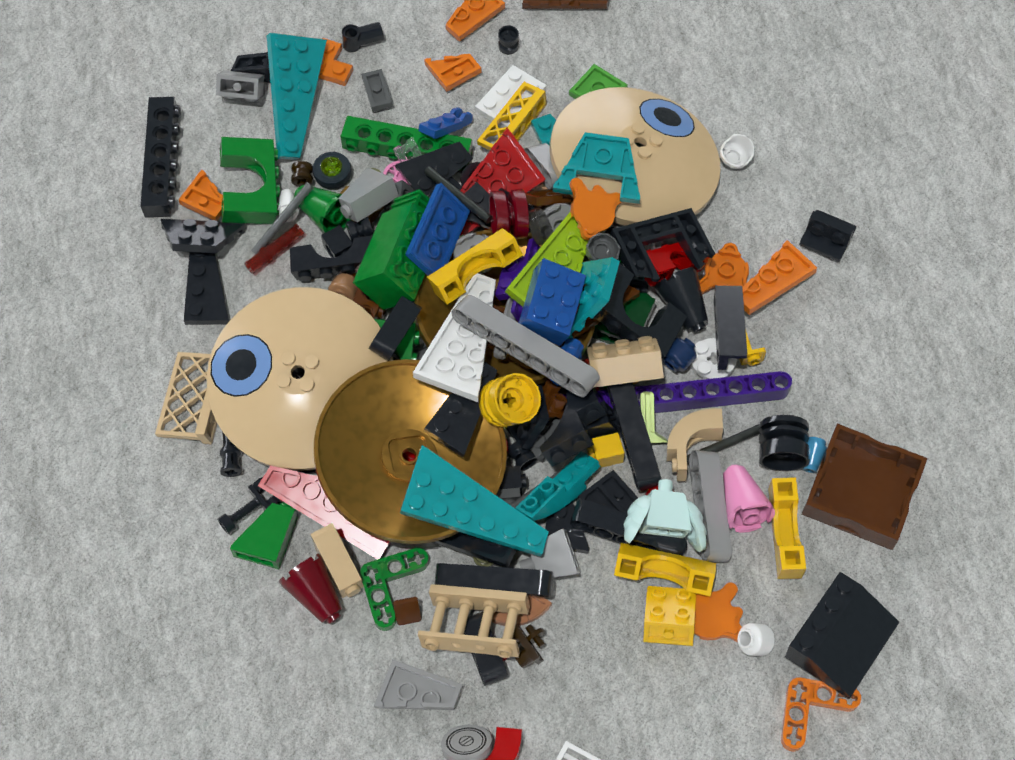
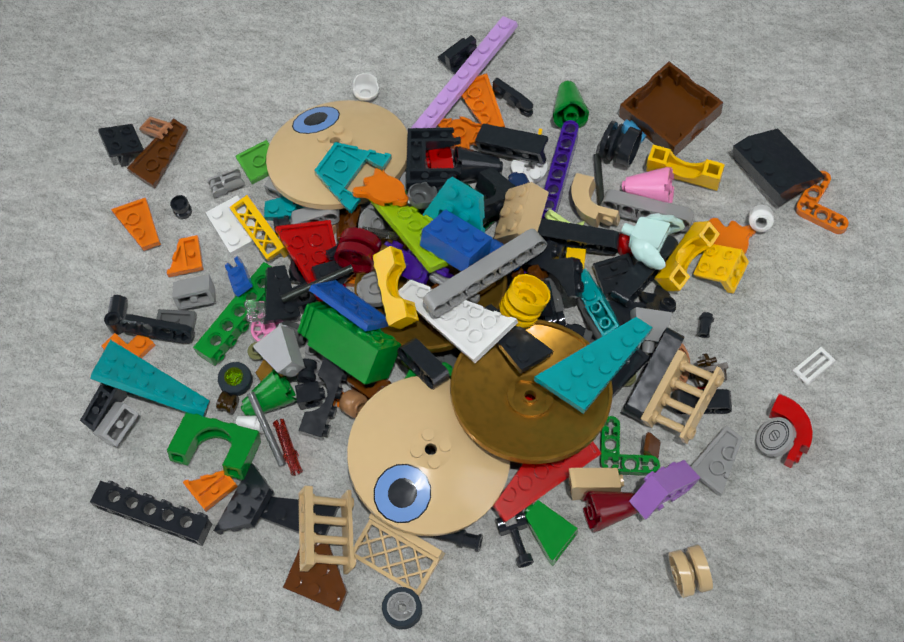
camera: 60 degrees left, 0 degrees up
(135, 412) = (404, 597): none -> wheel
(146, 328) = (320, 583): none -> reddish brown plate
(171, 302) = (308, 537): none -> tan fence
(264, 696) = (690, 571): none -> tan wheel
(355, 636) = (664, 486): none -> medium lavender wedge
(357, 76) = (130, 322): none -> black beam
(412, 91) = (193, 292): none -> light grey brick
(526, 138) = (281, 221): none -> black wheel
(556, 68) = (223, 183): none -> light grey arm
(586, 621) = (706, 320): none -> black pin
(594, 555) = (659, 300): none -> black plate
(797, 309) = (513, 97): none -> black hinge
(801, 246) = (466, 74): none -> lavender plate
(814, 370) = (569, 105): none -> green cone

